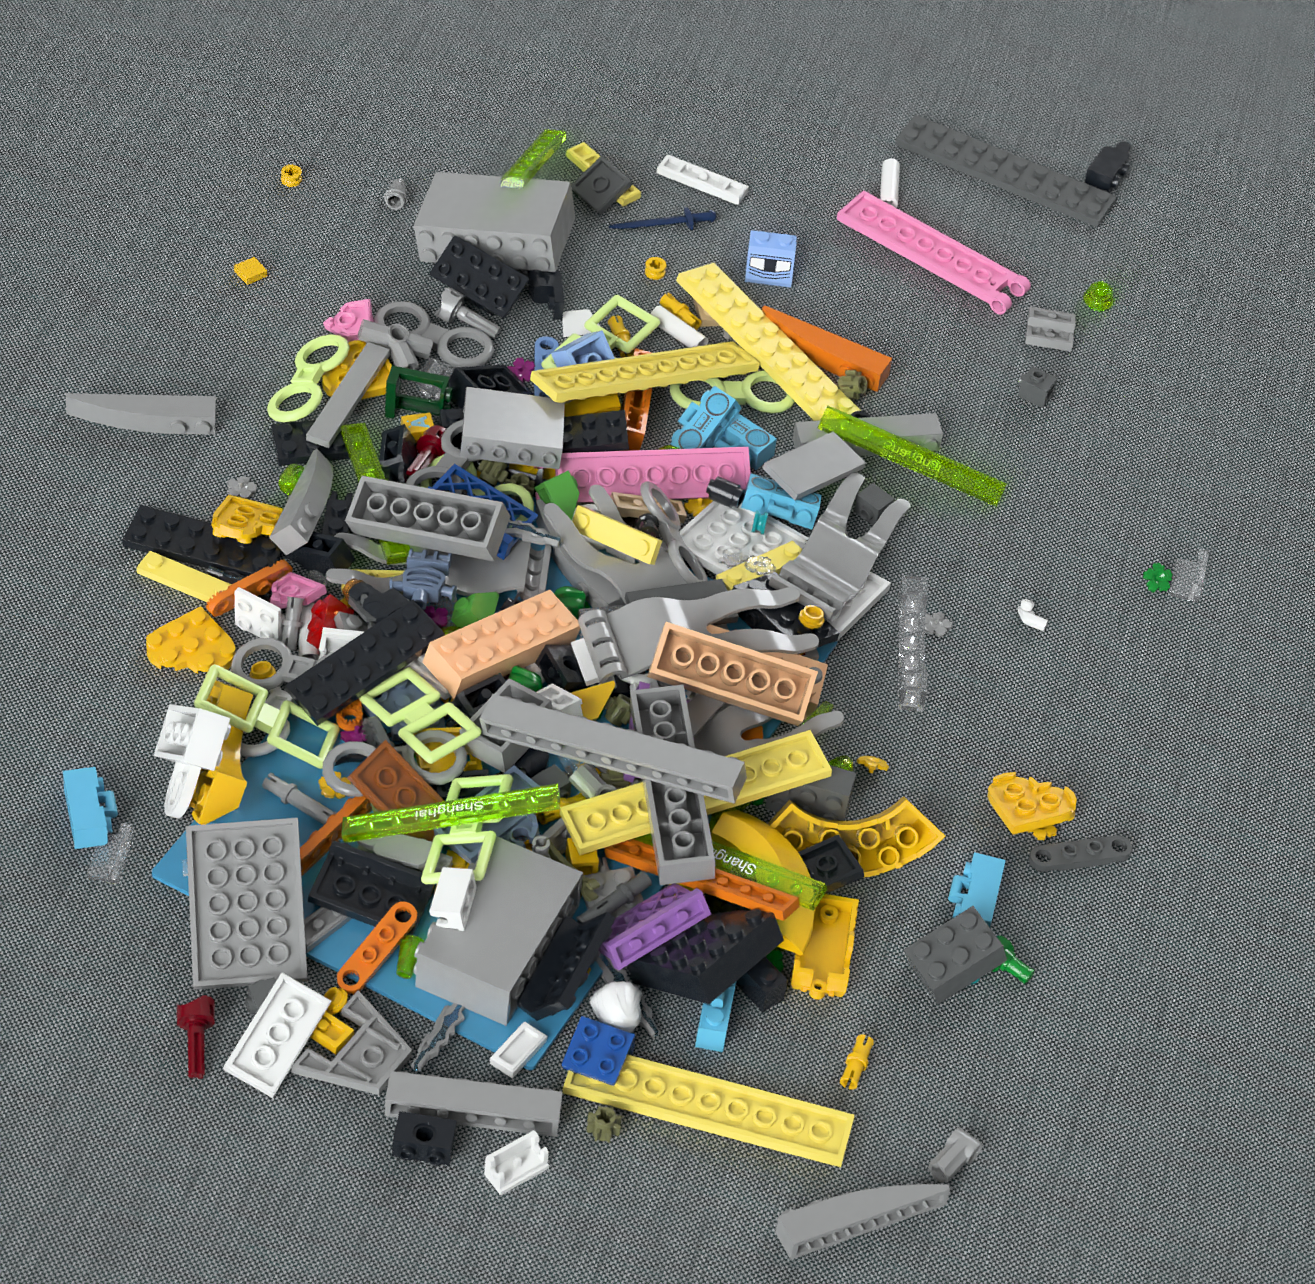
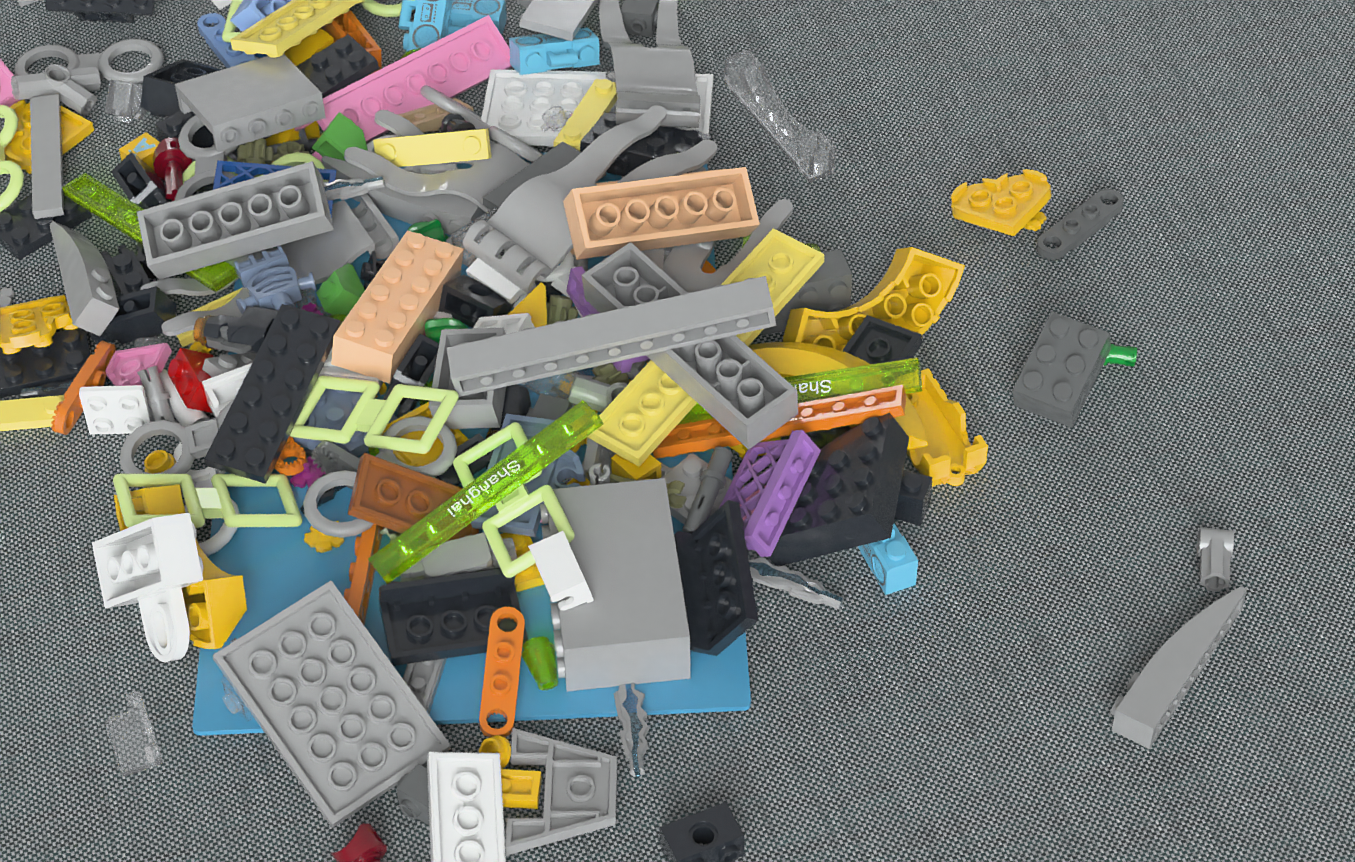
camera: 25 degrees left, 0 degrees up
(87, 819) = (62, 696): medium azure piece -> none
(190, 642) = (58, 474): yellow plate -> none
(289, 478) = (46, 263): clear neon green cone -> none
(291, 795) = (290, 568): light grey pin -> none
(396, 400) = (107, 138): dark green panel -> none
(453, 308) = (93, 29): light grey piece -> none
(475, 1102) = (722, 775): light grey brick -> none
(516, 1163) = (814, 812): white hinge -> none
(518, 1049) = (724, 695): white tile -> none
(522, 369) = (205, 55): magenta plant -> none
(598, 1051) = (806, 649): blue bracket -> none
(604, 1124) = (868, 720): olive gear -> none
(618, 1005) = (789, 597): white hair -> none
(696, 505) = (474, 96): yellow plant -> none
(721, 1109) = (947, 642): light yellow plate -> none
(725, 492) = (498, 66): black brick -> none
(759, 522) = (552, 77): teal bush -> none
(760, 566) = (588, 112): clear plant -> none
(812, 617) = (681, 130): yellow plate -> none
(857, 1061) = (1050, 521): yellow pin -> none
(873, 763) = (831, 240): yellow plant -> none
(937, 624) = (784, 91): light grey plant -> none
(983, 883) = (1023, 294): medium azure piece -> none
(1029, 618) = (858, 46): white arm -> none

